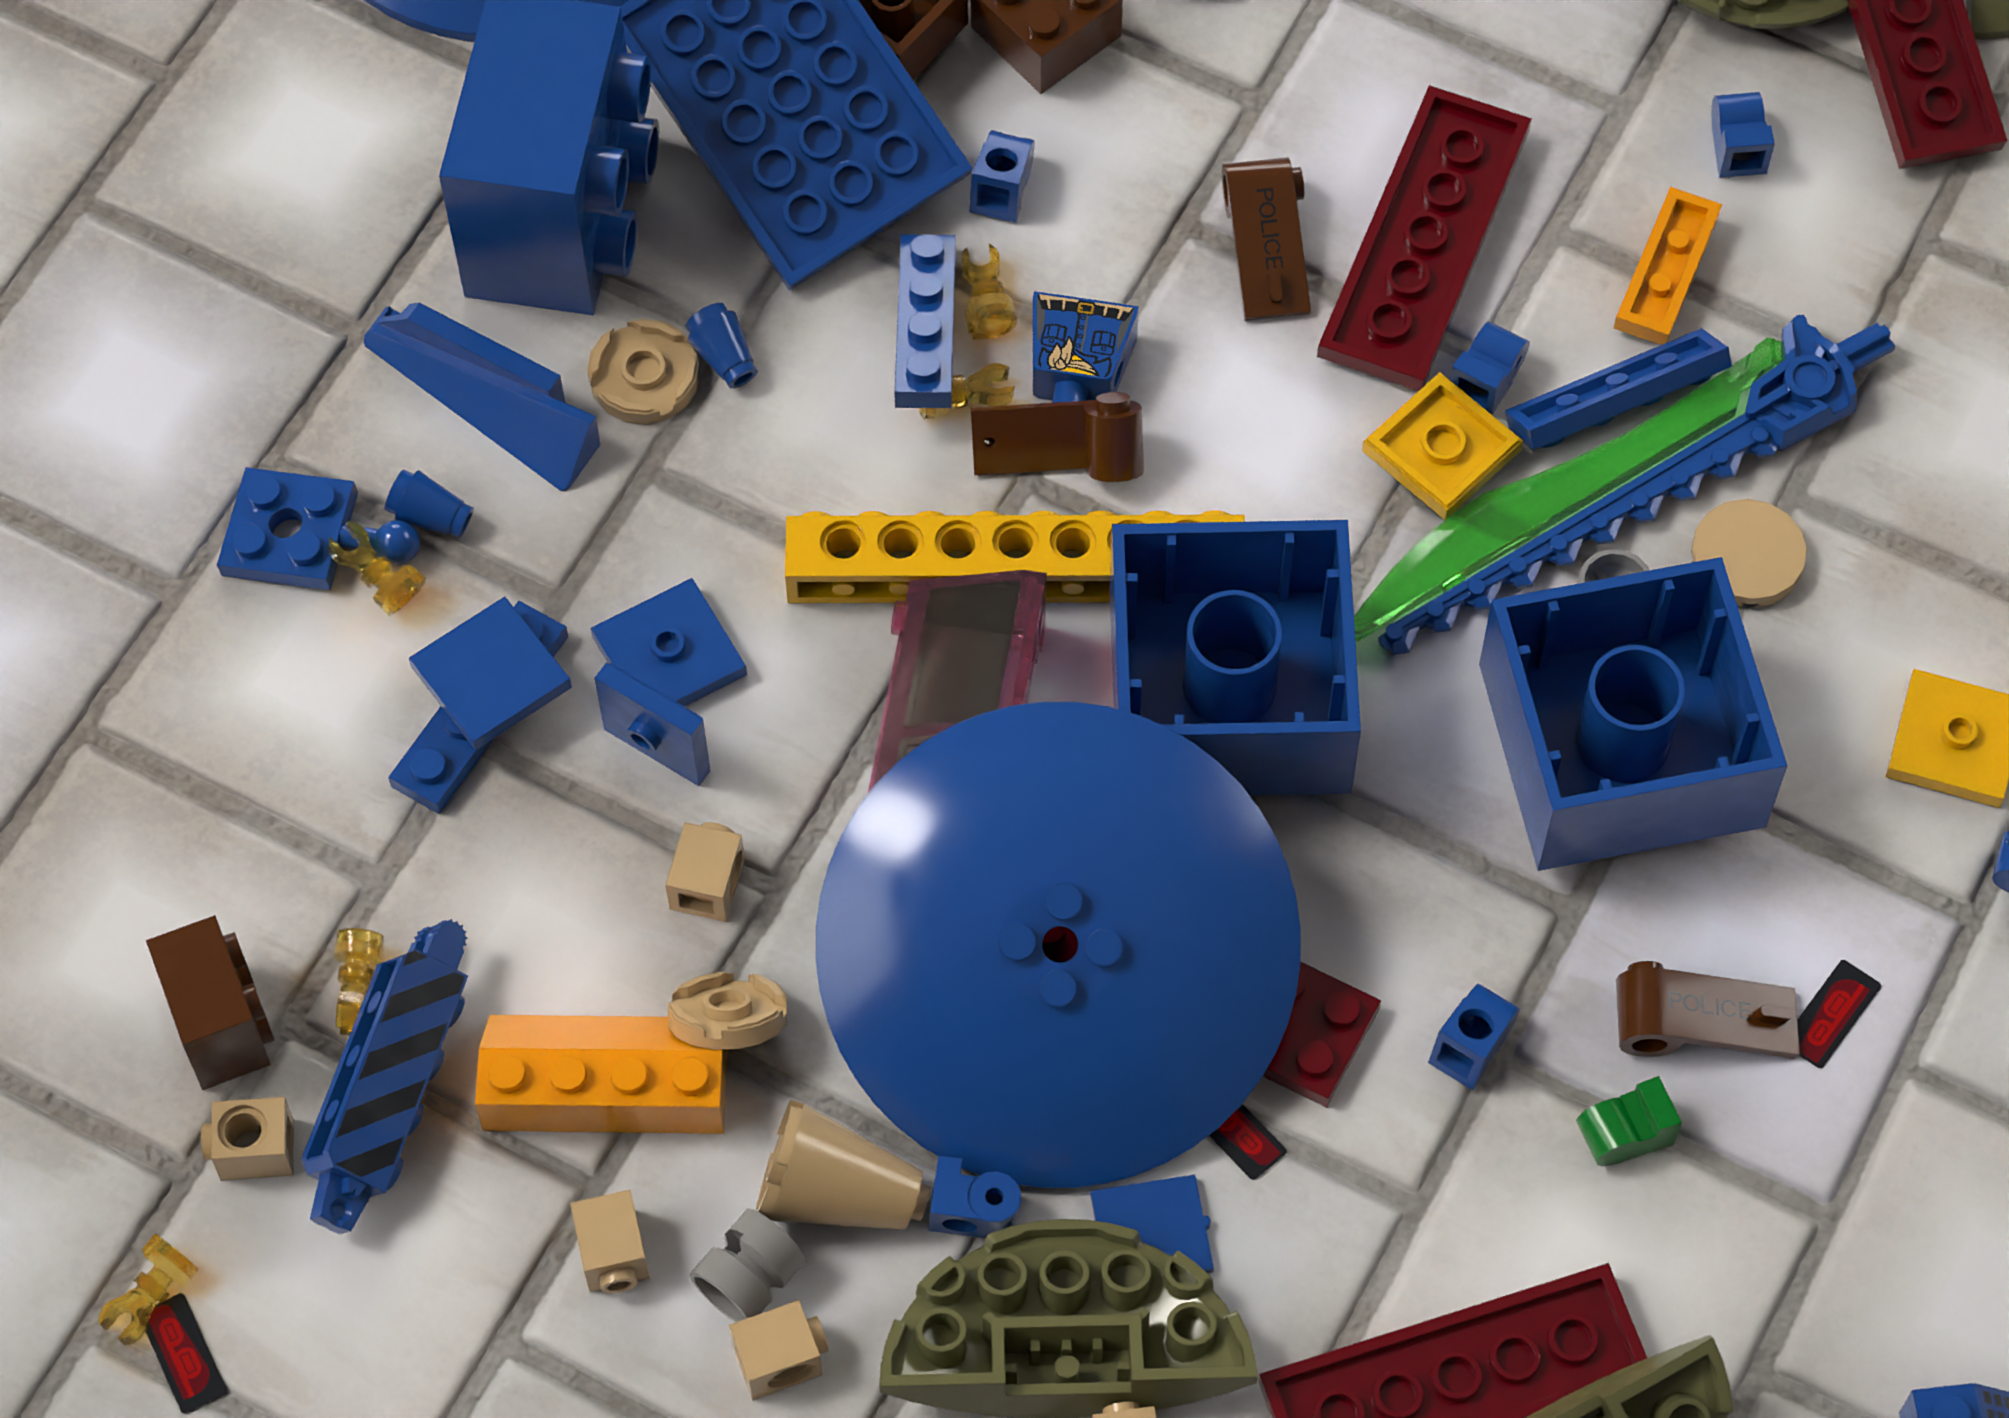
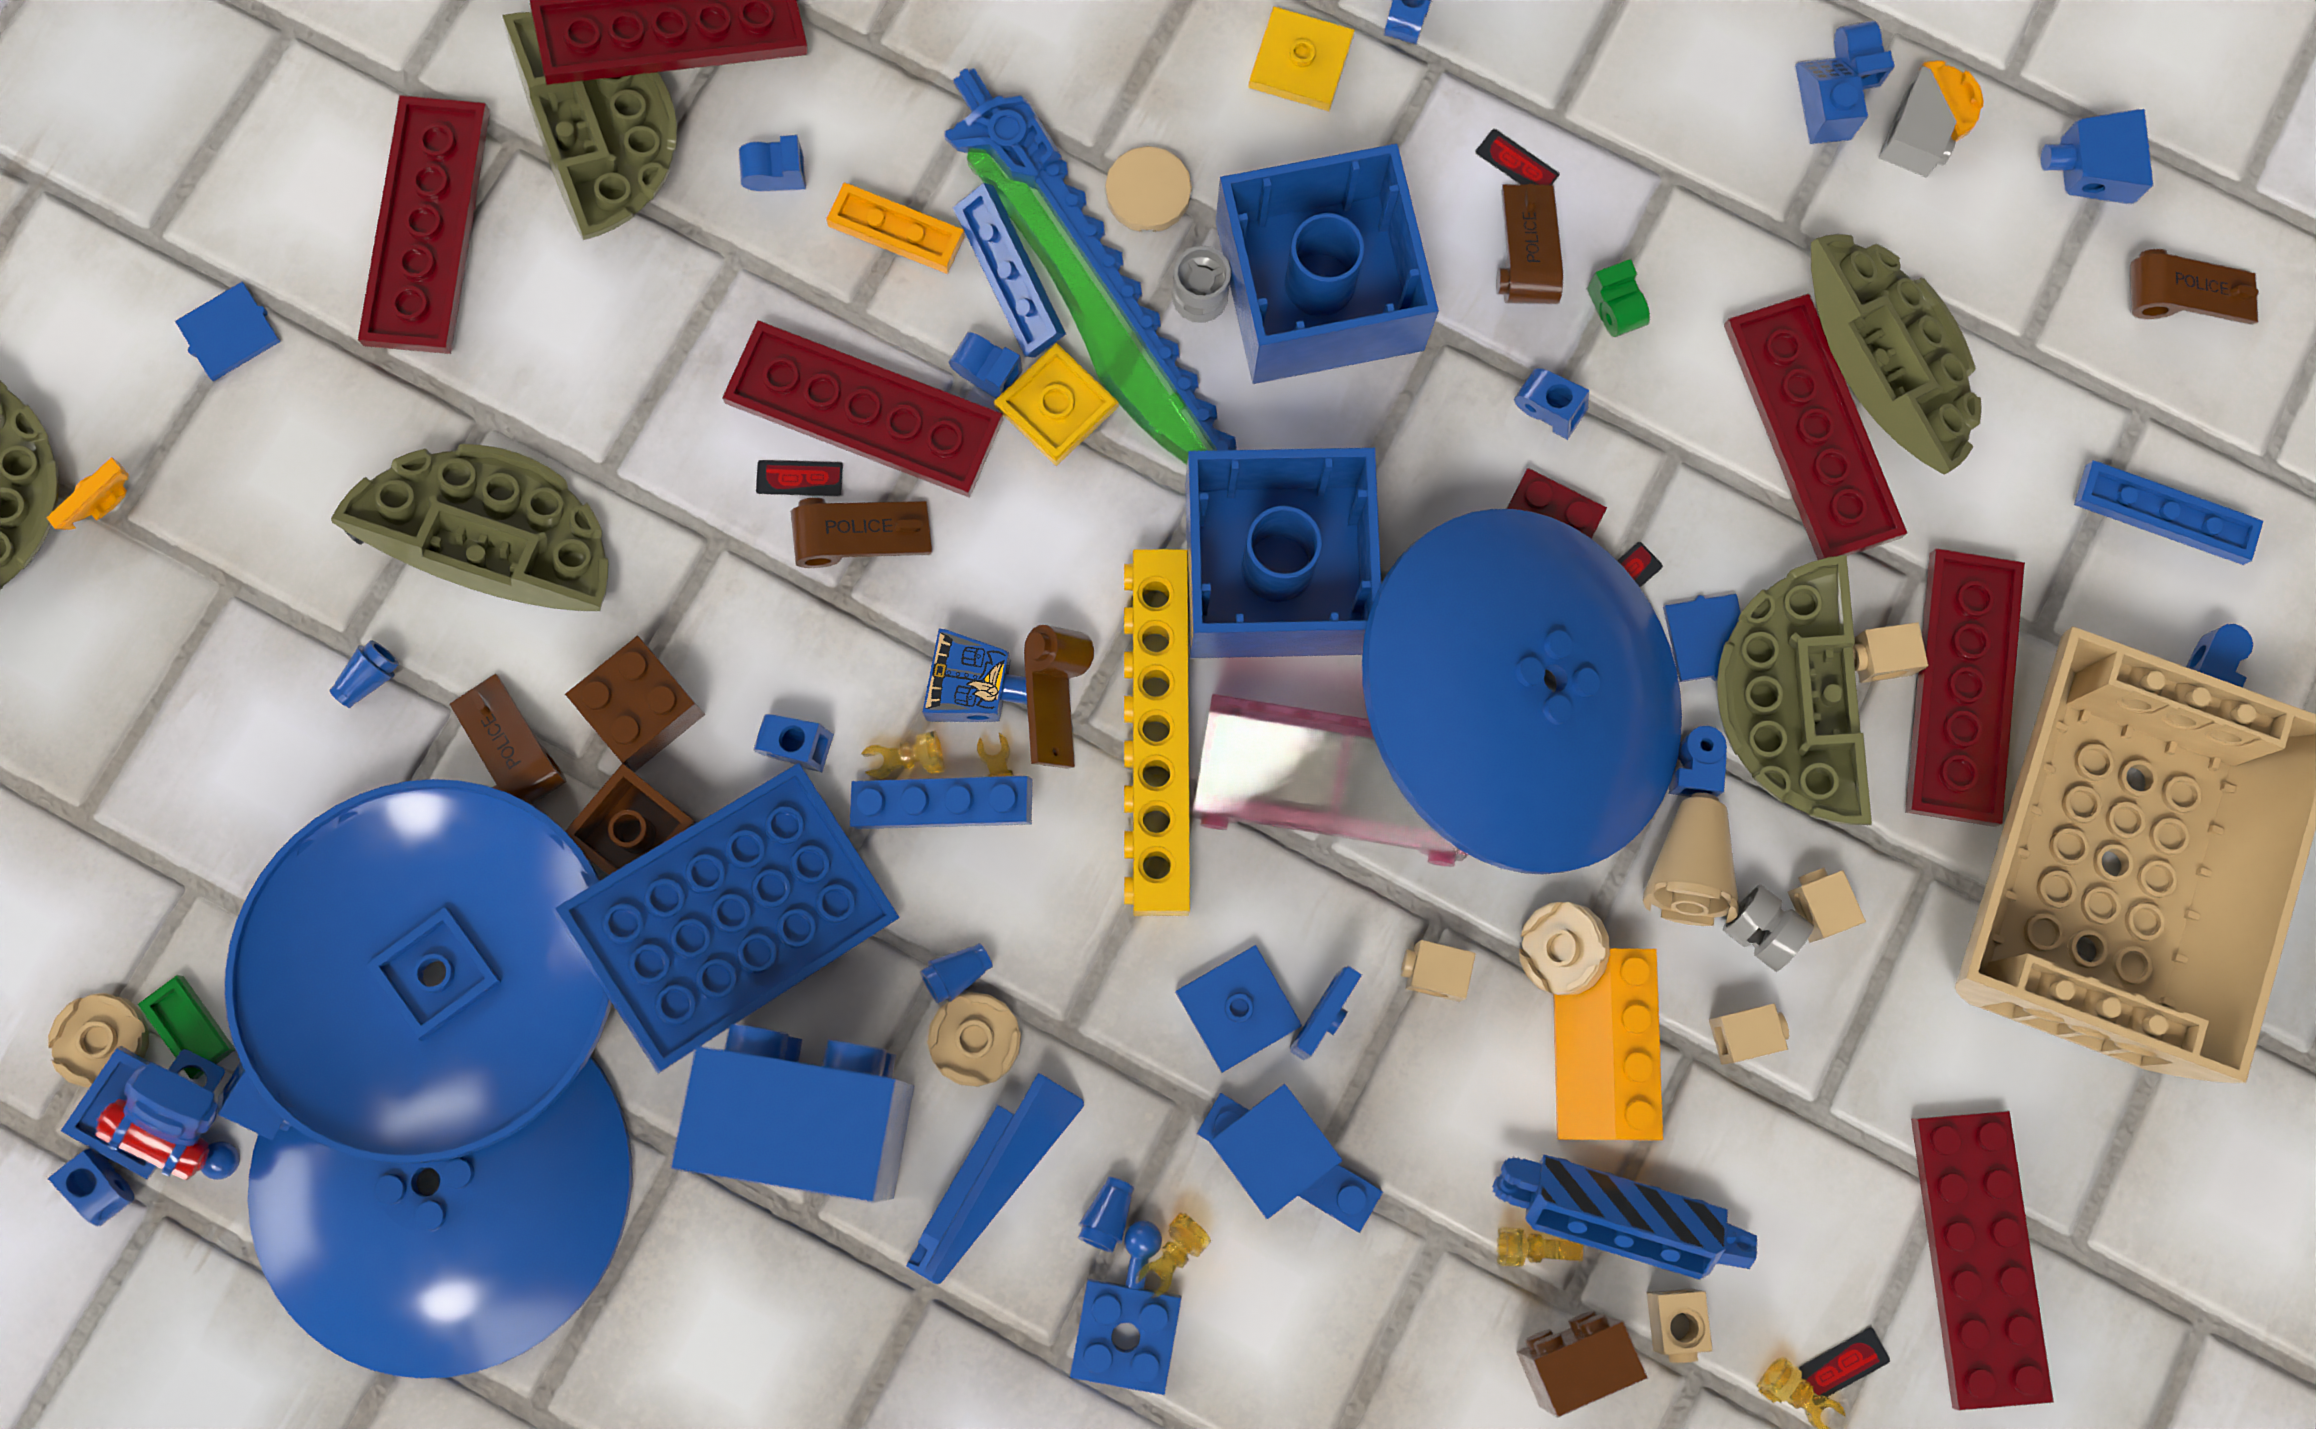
camera: 95 degrees left, 15 degrees up
(1337, 180) = (799, 478): none -> sticker

